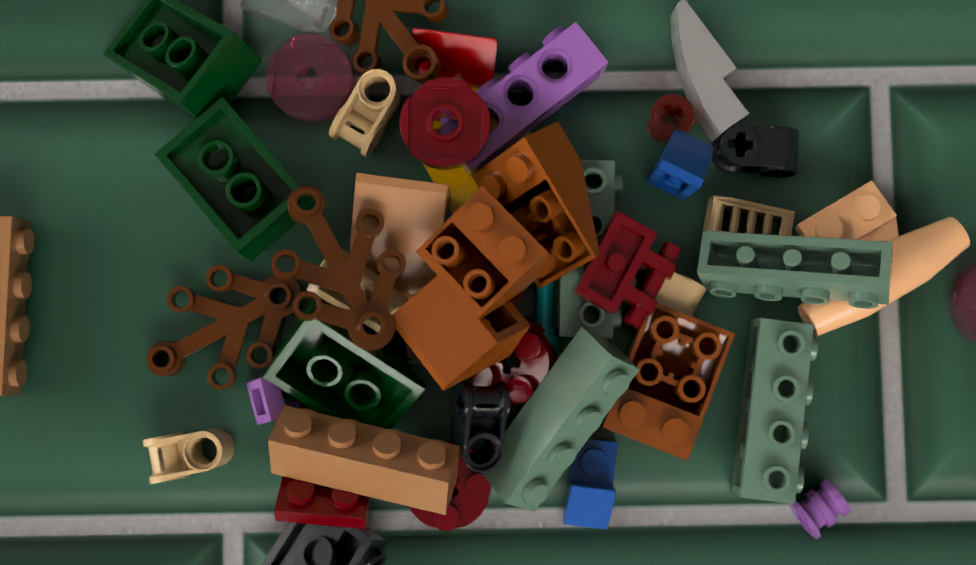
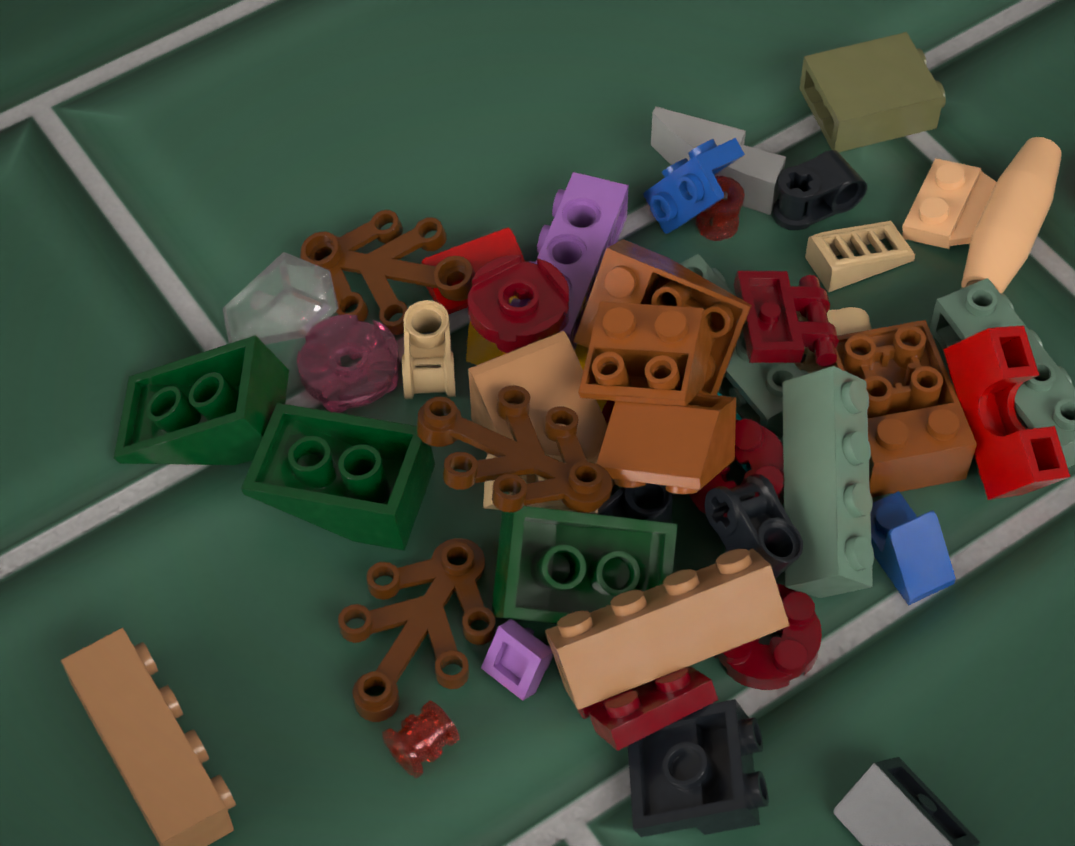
camera: 35 degrees left, 30 degrees down
(169, 413) = (421, 738): none -> clear red bush
(181, 454) = (459, 772): tan piece -> none
(653, 87) = (691, 184): none -> blue bracket
(681, 165) = (763, 233): blue slope -> none
(712, 479) = (986, 379): none -> red arch
(796, 268) = (931, 235): sand green brick -> none
(873, 85) = (871, 92): none -> olive brick

